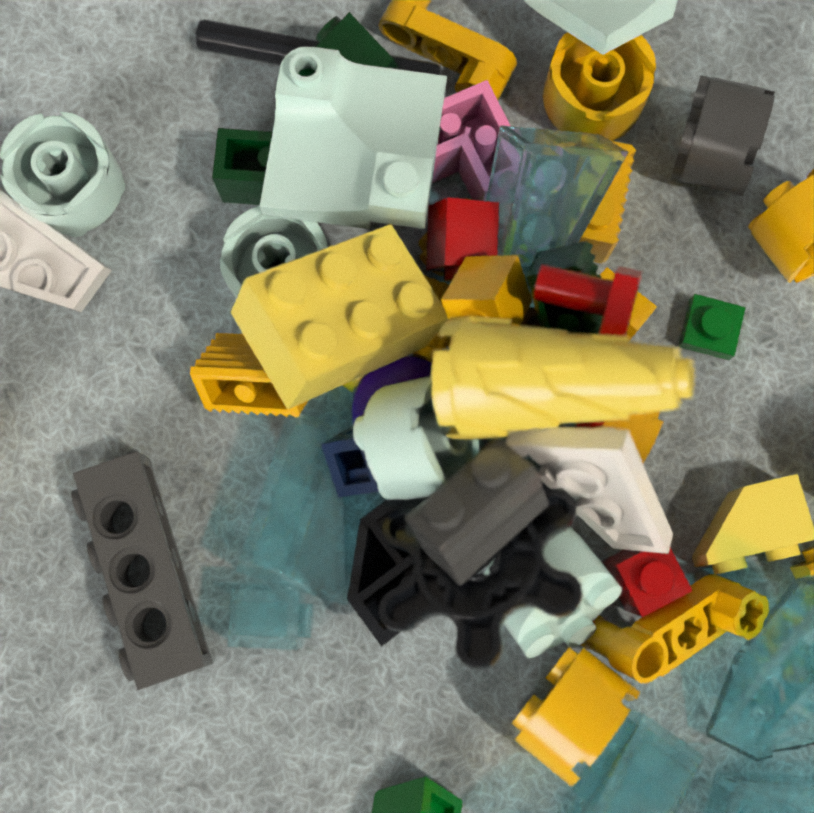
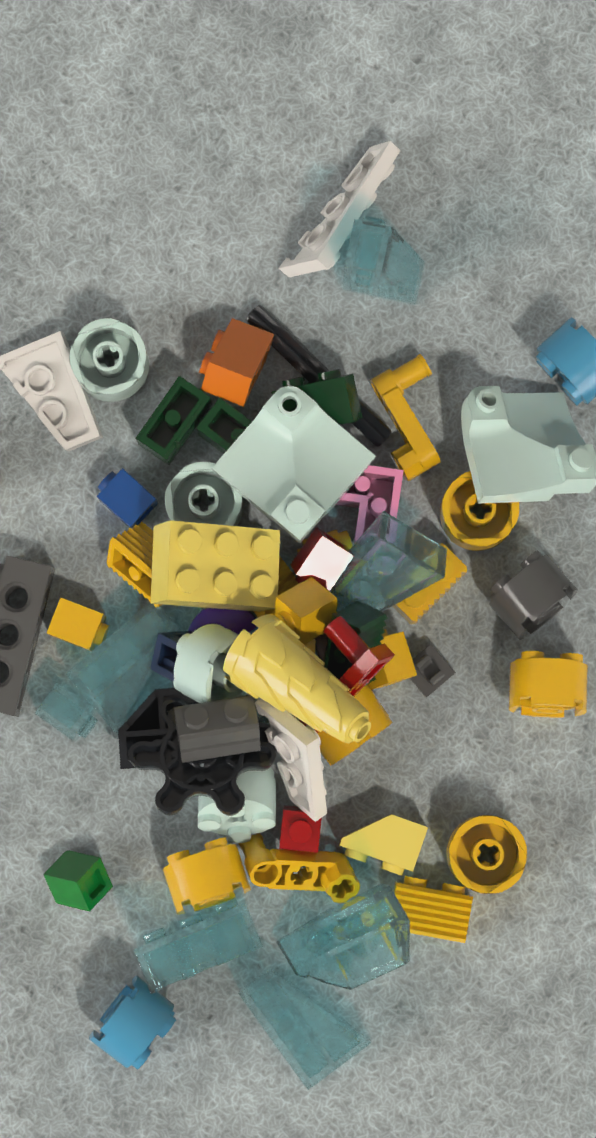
camera: 35 degrees right, 5 degrees up
(180, 318) = (126, 498): none -> blue brick
(181, 194) = (174, 420): none -> dark green brick
(211, 85) = (236, 361): none -> orange brick
(215, 504) = (78, 625): none -> yellow brick
(670, 296) = (431, 670): none -> dark grey tile
(712, 327) = (449, 708): green plate -> none

